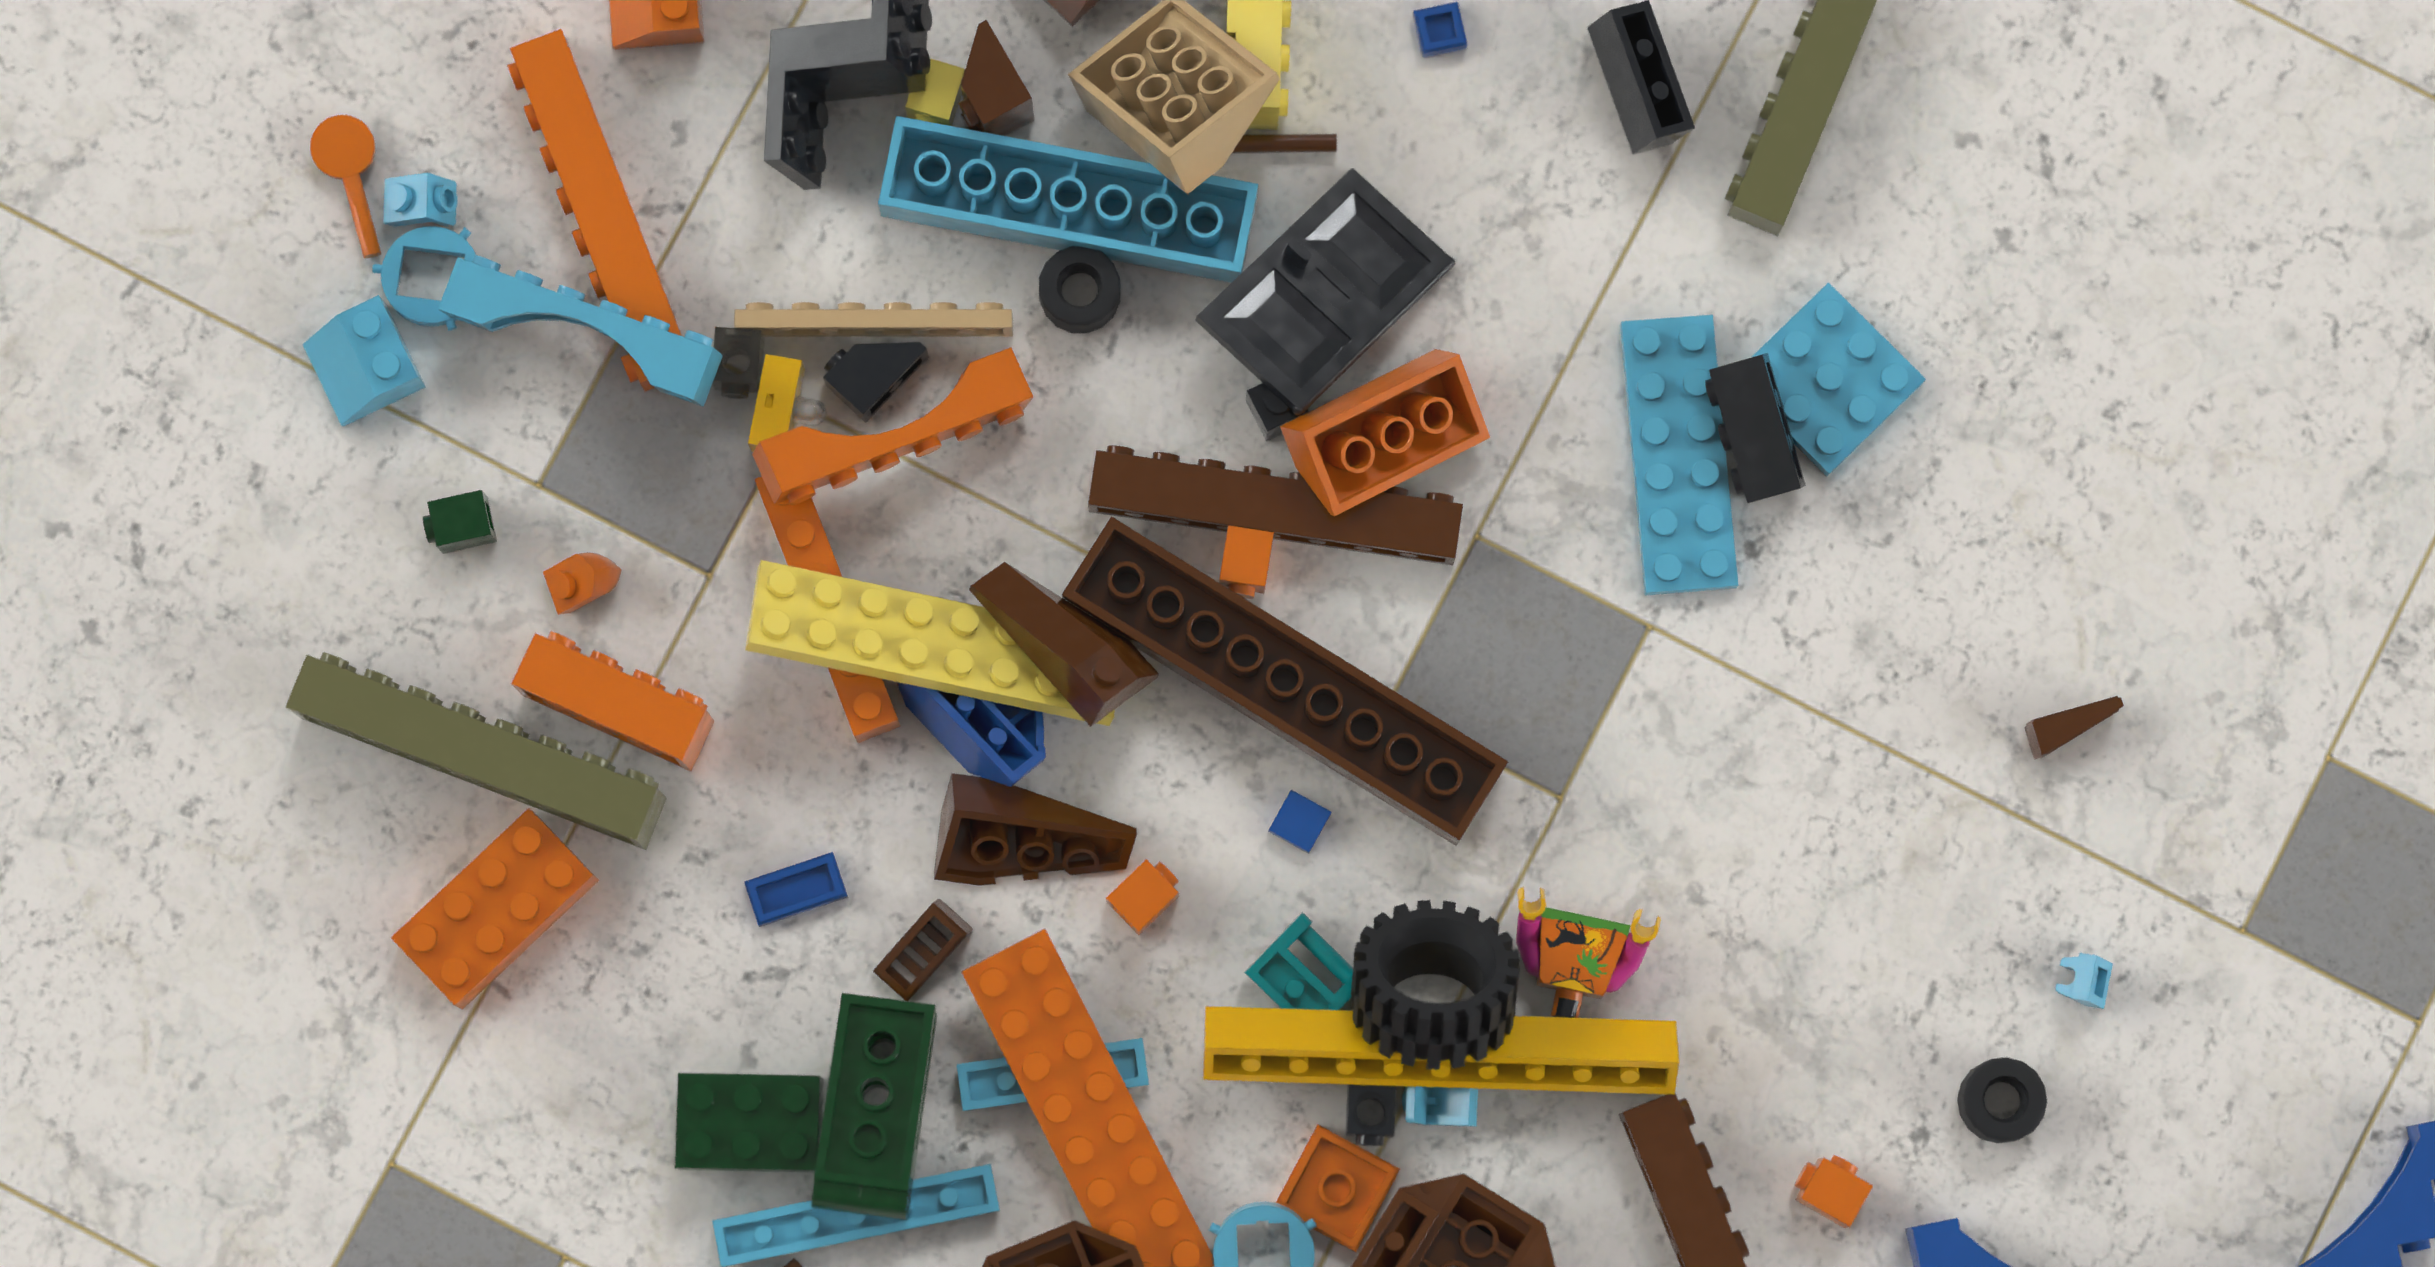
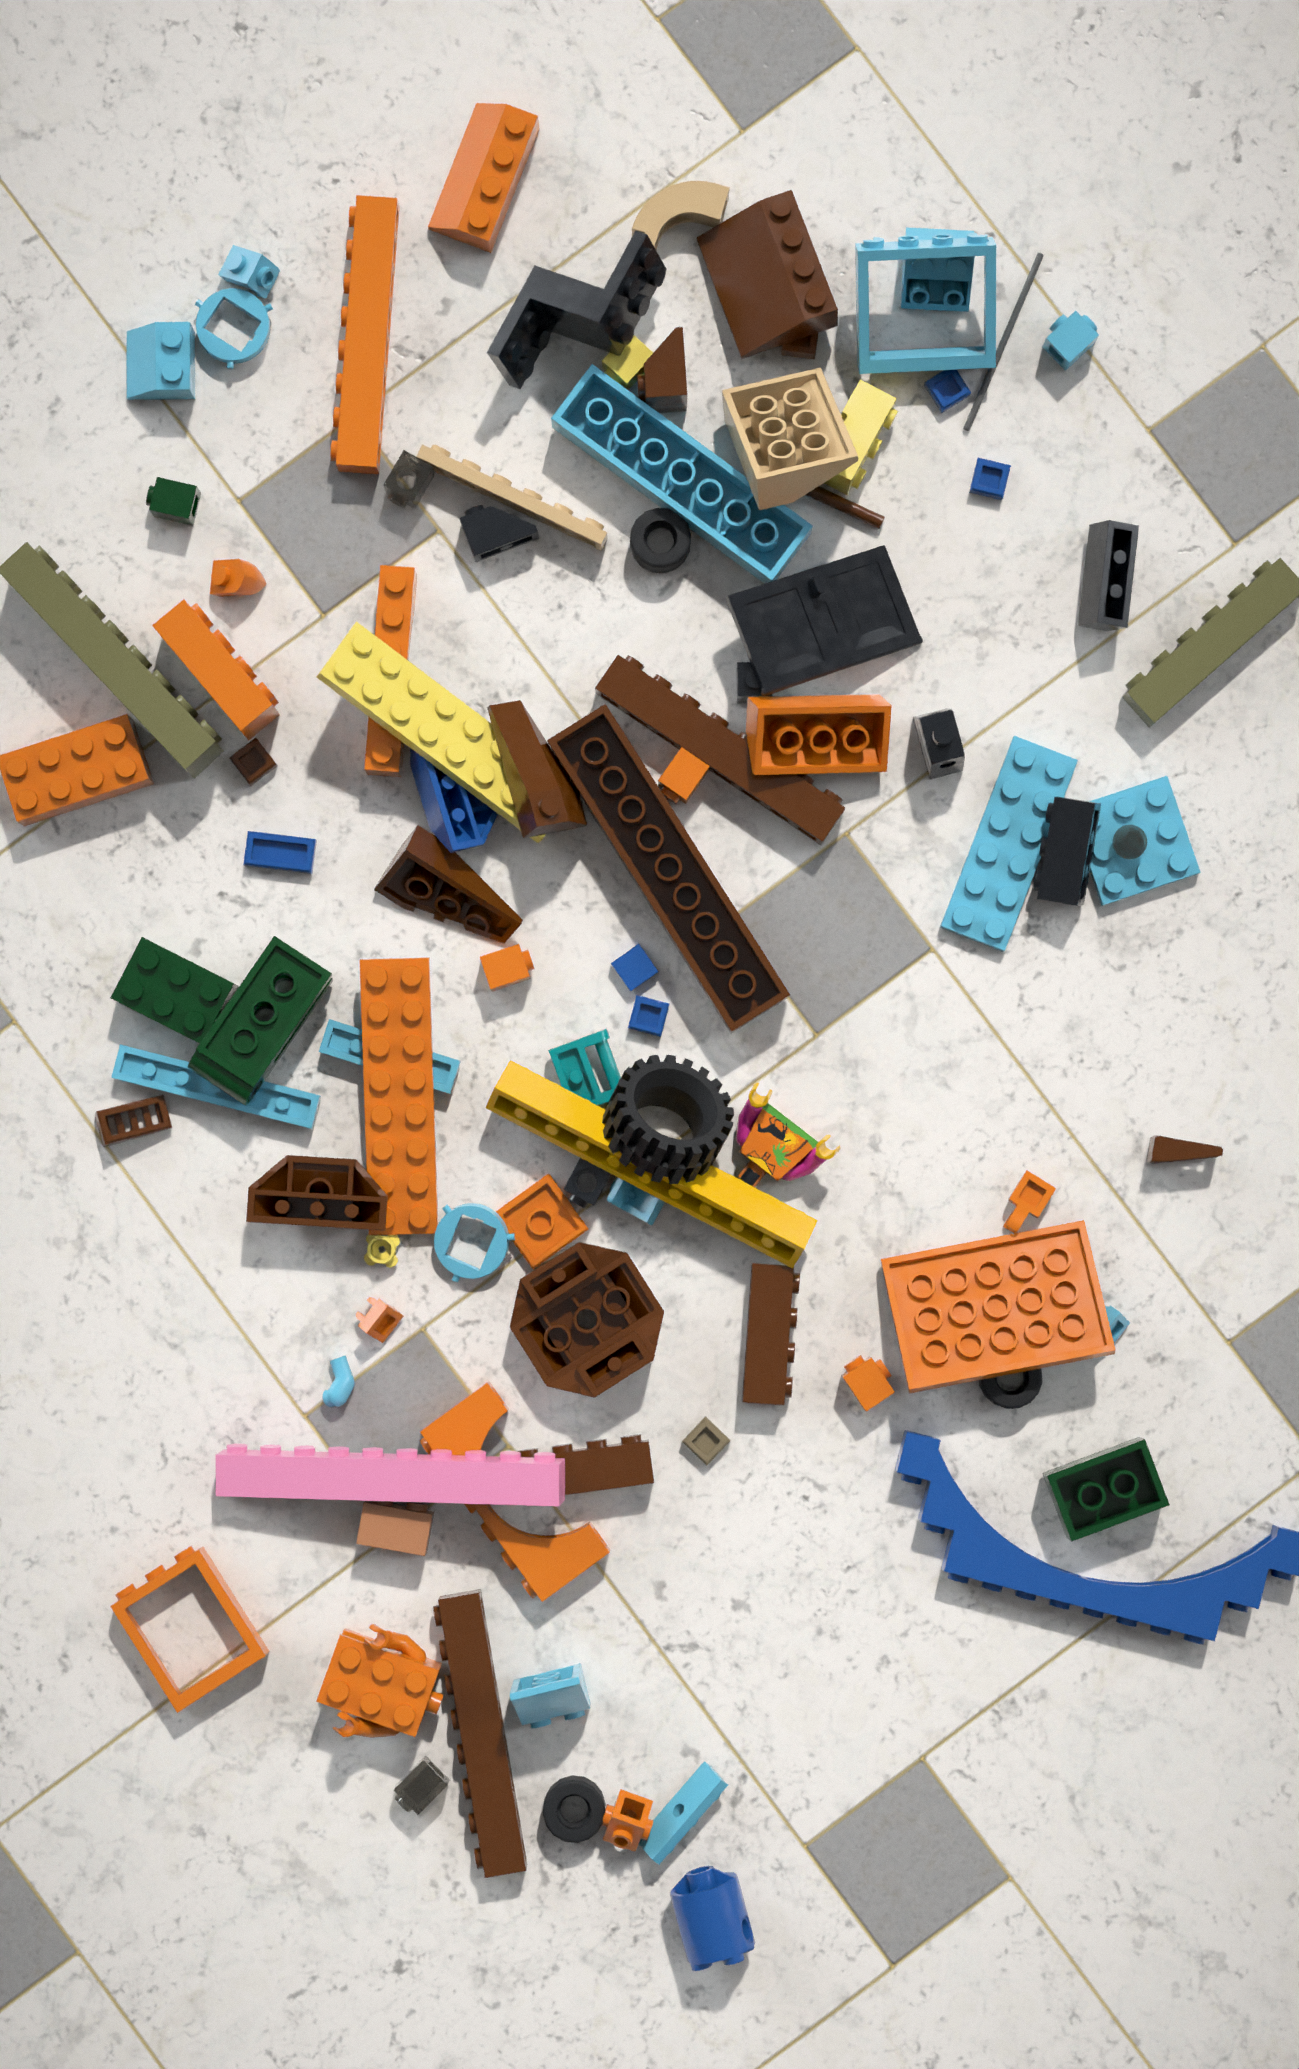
camera: 30 degrees right, 5 degrees up
(344, 150) = (215, 213): orange piece -> none
(497, 300) = (266, 363): medium azure arch -> none
(709, 794) = (253, 761): none -> reddish brown tile
(780, 402) = (423, 524): yellow piece -> none
(809, 458) = (419, 568): orange arch -> none
(951, 921) = (371, 922): reddish brown slope -> none
(1345, 872) = (648, 1016): none -> blue tile
(1537, 371) = (940, 742): none -> black torso
(1824, 382) = (1129, 842): none -> clear smoke plate
(1917, 869) = (1030, 1198): none -> orange plate
(1945, 1021) = (997, 1306): none -> orange plate
(2186, 1179) = (1105, 1488): none -> dark green brick

